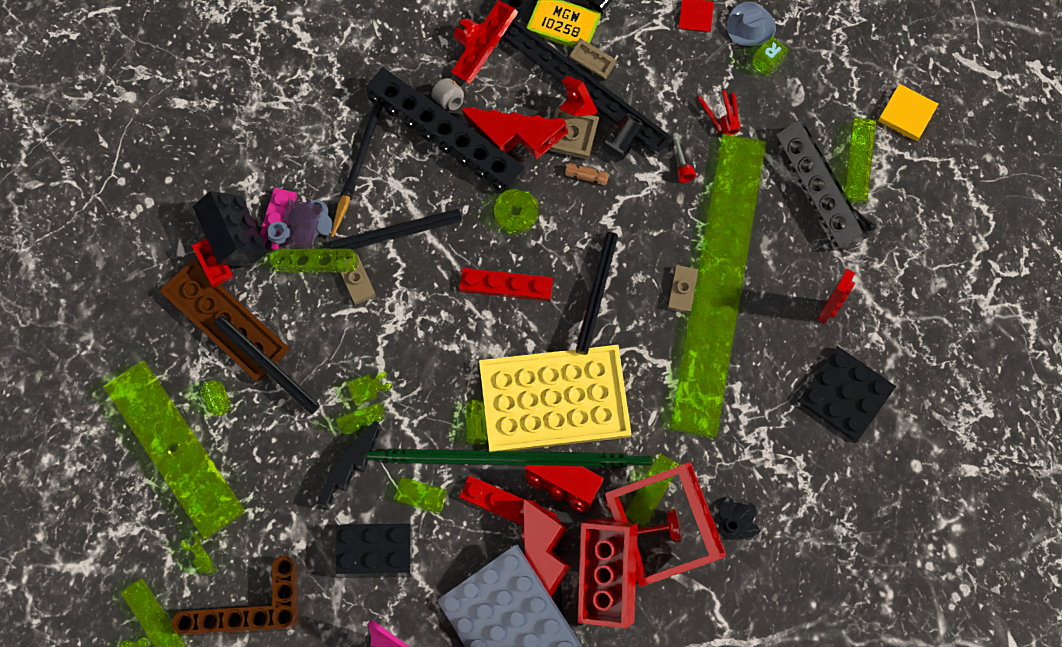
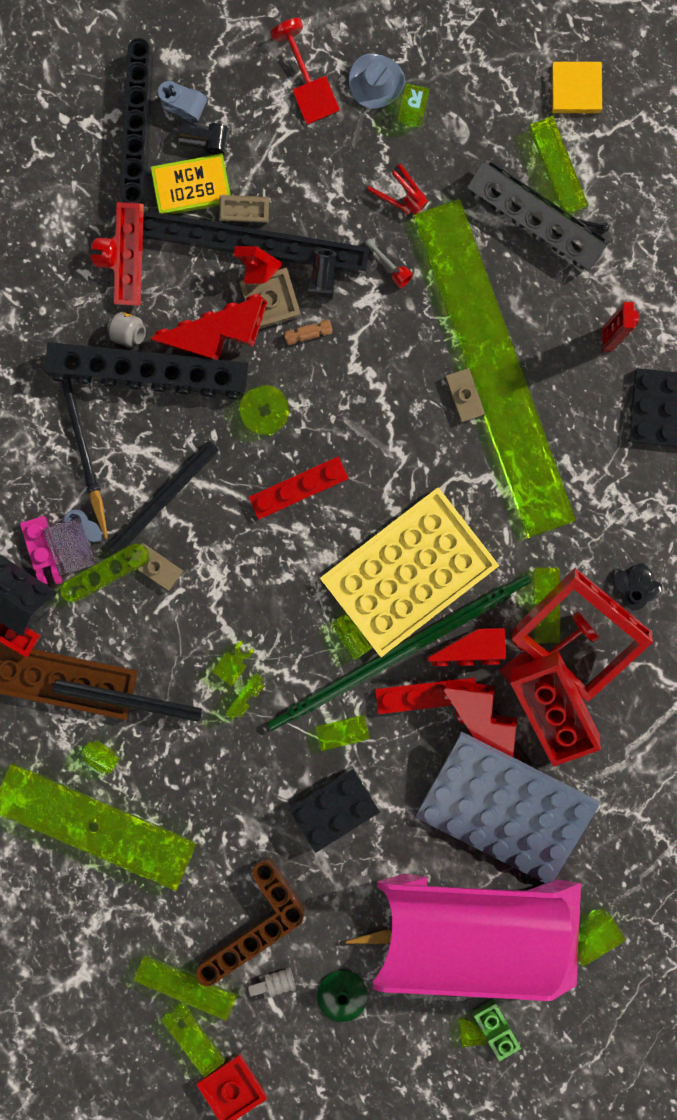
camera: 30 degrees left, 15 degrees up
(203, 561) = (187, 908): clear neon green plate -> none
(274, 228) = (49, 570): sand blue plate -> none
(352, 459) = (263, 736): black slope -> none
(596, 293) = (389, 448): black axle -> none

